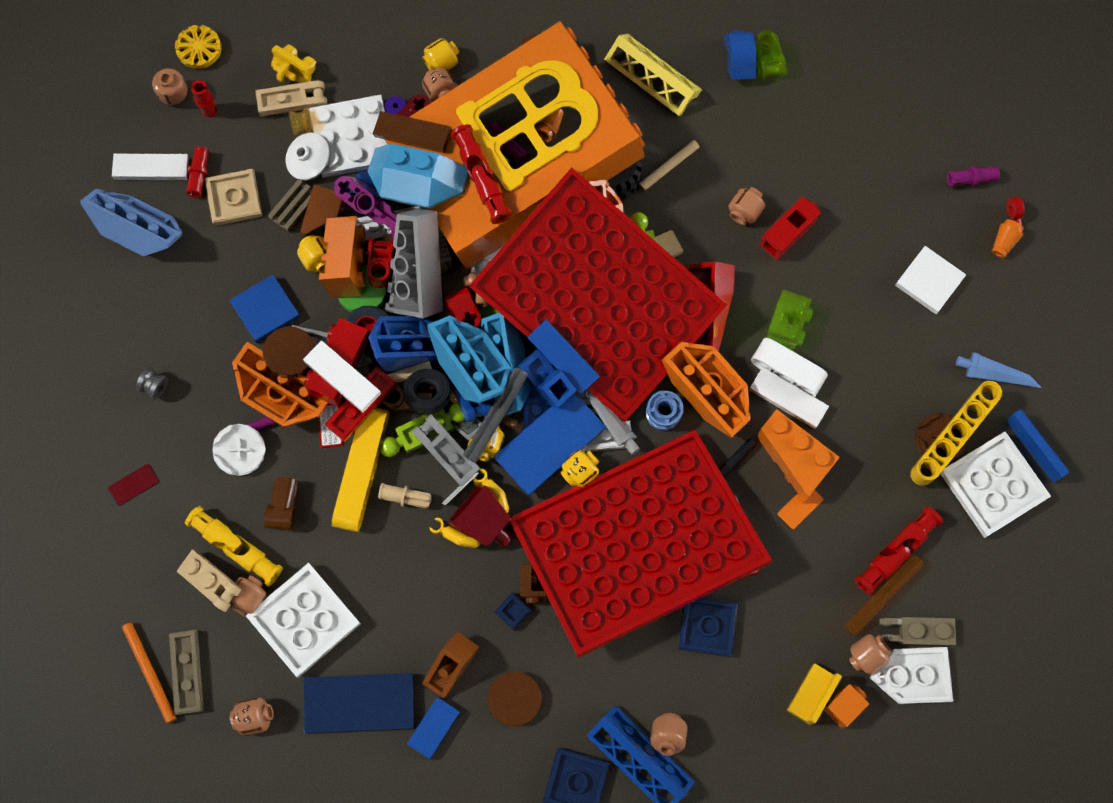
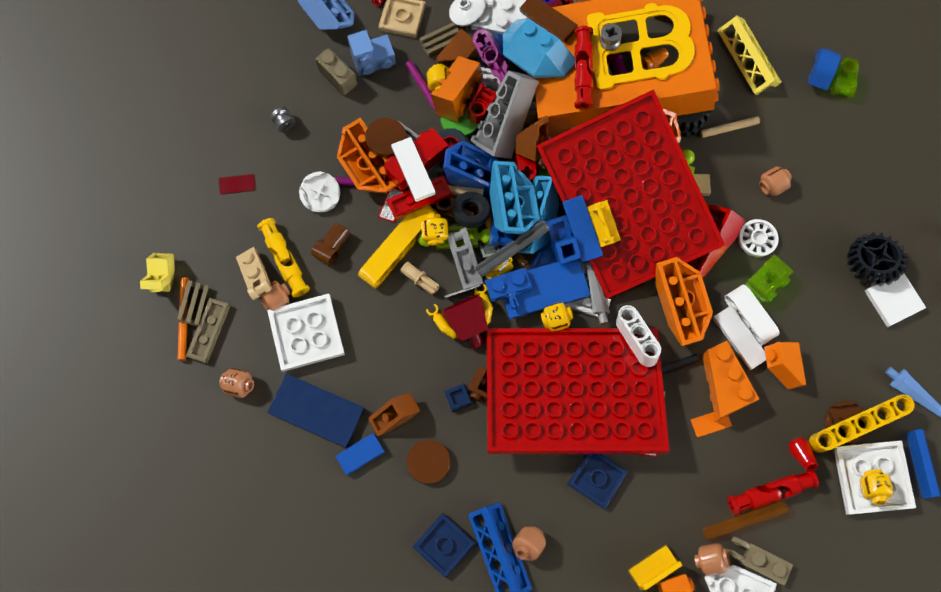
camera: 30 degrees right, 0 degrees up
(95, 632) = (159, 272): none -> light yellow brick
(162, 645) = (197, 286): none -> dark tan tile
(189, 298) = (336, 71): none -> dark tan brick
(221, 259) = (371, 54): none -> medium blue brick
(264, 308) = (385, 101): blue tile -> none
(295, 267) = (420, 81): none -> magenta bar
(397, 433) = (435, 229): none -> yellow head
(458, 277) = (532, 136): none -> dark orange slope
(500, 129) = (613, 42): none -> flat silver wheel
(511, 459) = (508, 286): none -> blue plate
(584, 340) = (603, 223): none -> yellow hinge
(660, 421) = (646, 296): medium blue wheel -> none
(684, 459) = (638, 345): none -> white beam
(757, 278) = (758, 238): none -> white wheel
(790, 228) = (802, 212): red brick -> none
(849, 404) = (786, 363): none -> orange slope
(874, 243) = (888, 266): none -> black gear
(911, 493) = (803, 453): none -> red cone
(1001, 493) = (876, 486): none -> yellow head

